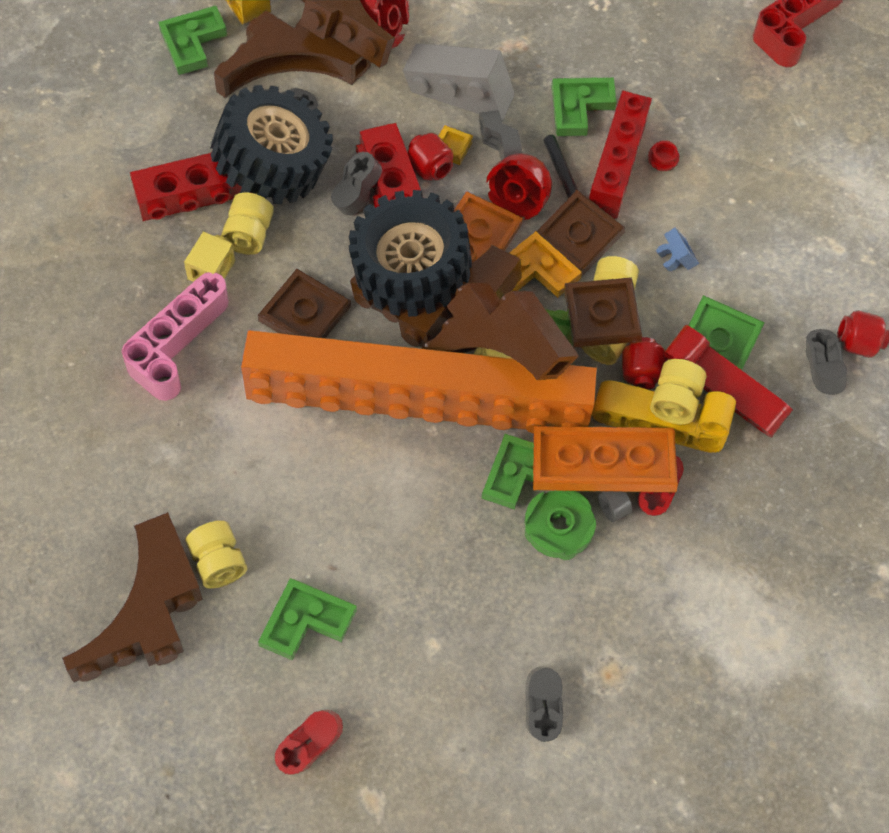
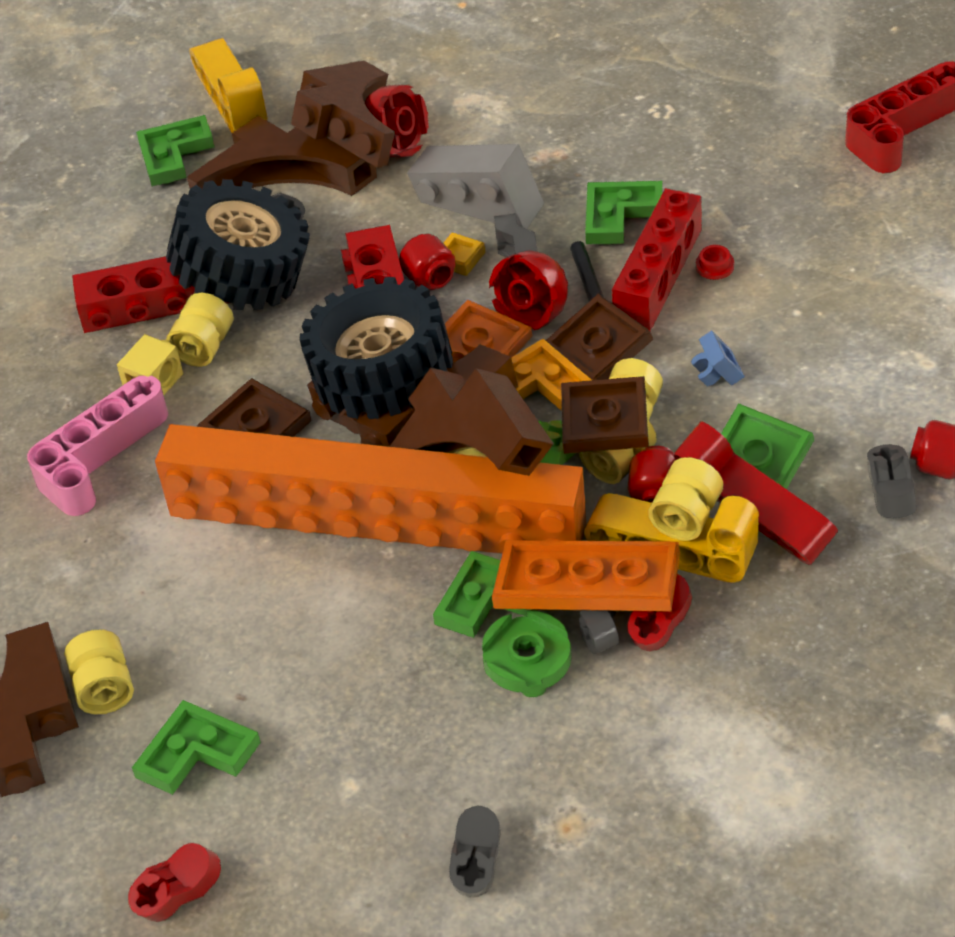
camera: 15 degrees right, 15 degrees down
(354, 189) = (334, 273): dark grey piece -> none

